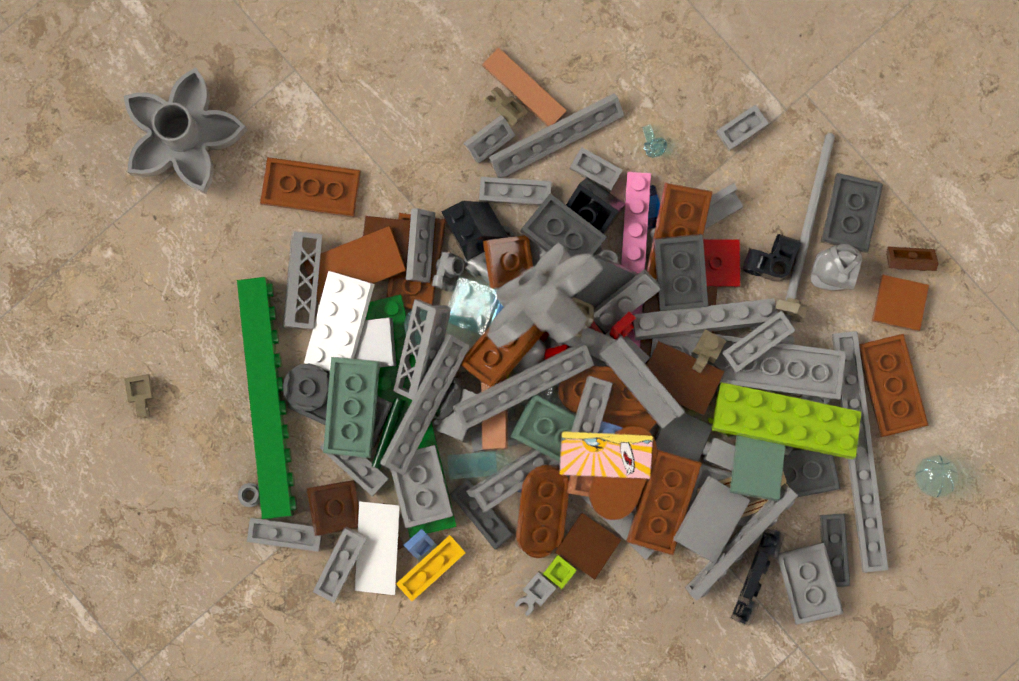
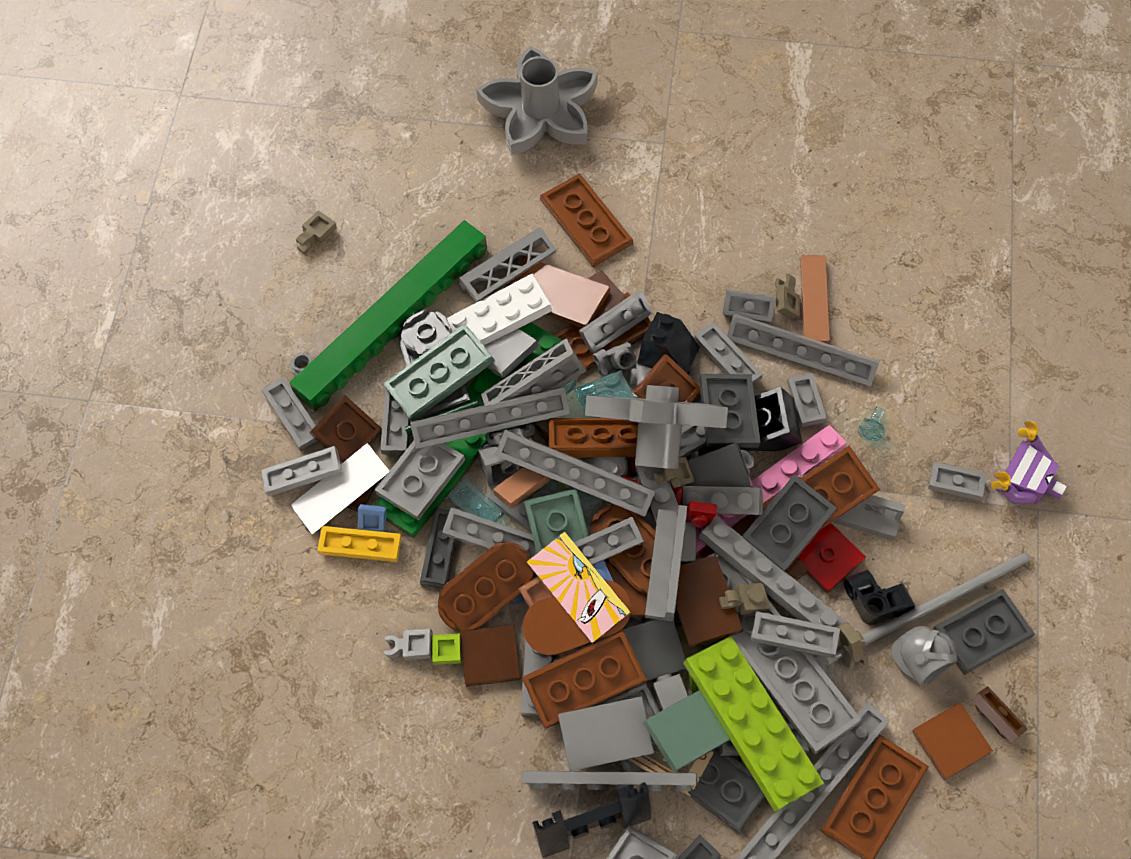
camera: 55 degrees right, 20 degrees down
(779, 76) = (1029, 471): none -> torso

